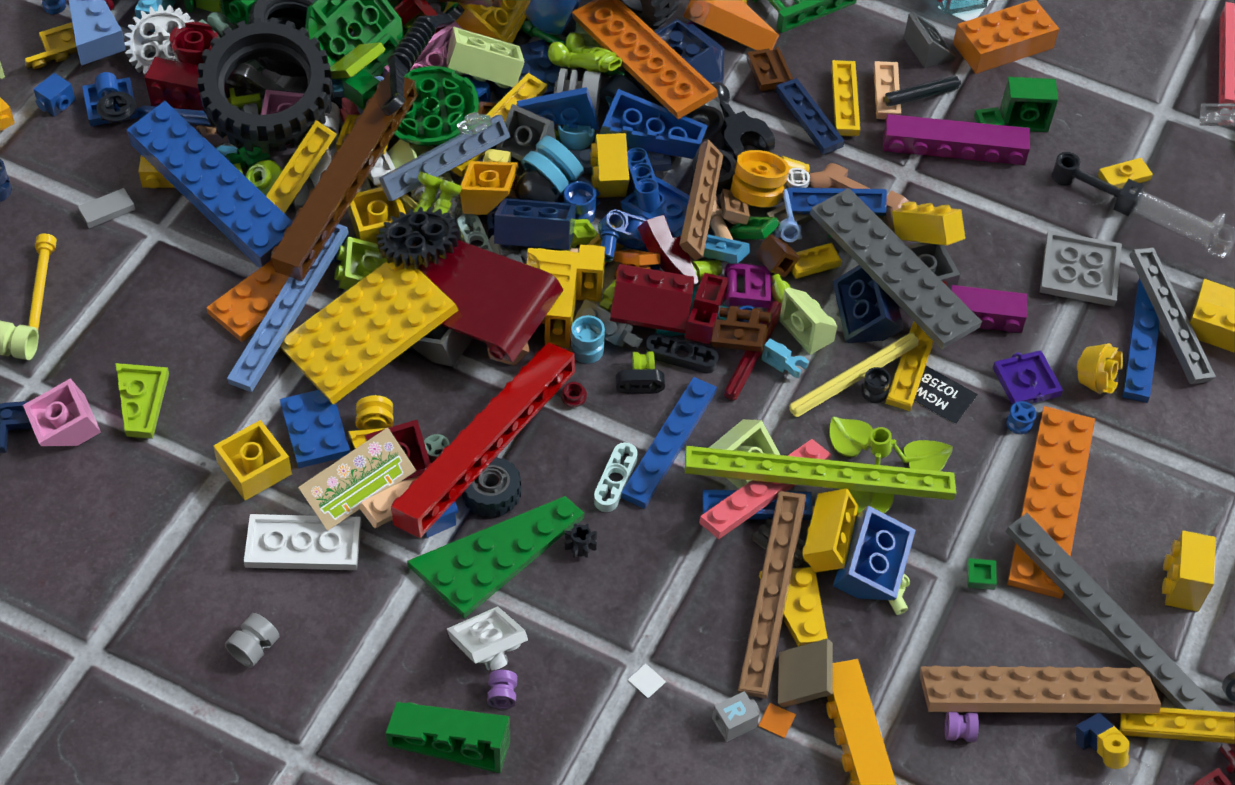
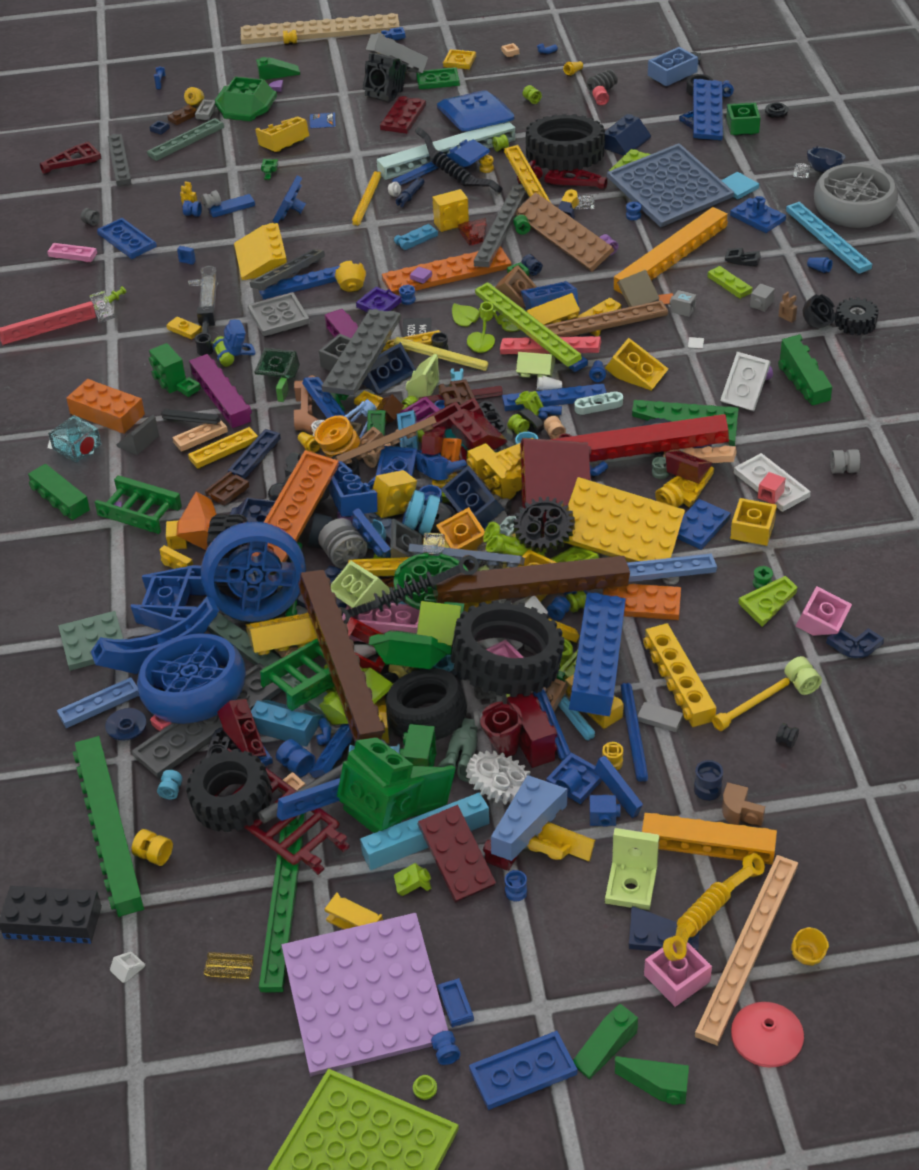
camera: 120 degrees left, 10 degrees down
(58, 111) = (618, 786): none -> blue tile
(100, 137) = (614, 753): none -> yellow wheel
(107, 103) = (581, 750): black gear -> none
(113, 177) = (634, 732): none -> blue axle
(132, 250) = (679, 675): none -> yellow brick
(171, 422) = (762, 576): none -> green wheel
(278, 509) = (771, 488): none -> coral brick
(356, 477) = (721, 465): sticker -> none
(498, 384) = (596, 471): none -> blue arm
(577, 55) = (312, 538): lime piece -> none
(580, 540) = (652, 390): black gear -> none
(604, 394) = (554, 427): none -> light nougat wheel
(644, 558) = (636, 366): none -> yellow slope
(648, 416) = (554, 410): none -> blue arm
(667, 395) = (530, 401): none -> lime bracket
(675, 513) = (597, 371): none -> blue cone
(697, 437) = (548, 383): none -> white cone
(910, 190) = (282, 389): none -> bright green tile
(928, 223) = (318, 350): yellow brick -> none
(936, 539) = (514, 283): none -> medium nougat slope
(958, 192) = (278, 363): none -> clear green slope
(982, 596) = (532, 264): none -> dark blue wheel
(1036, 182) = (232, 343): none -> blue piece
(1046, 445) = (421, 275): none -> medium lavender tile
(1100, 652) = (519, 221): none -> green wheel
(1135, 592) = (473, 231): none -> clear red wing
(1167, 511) = (416, 237): none -> dark azure plate

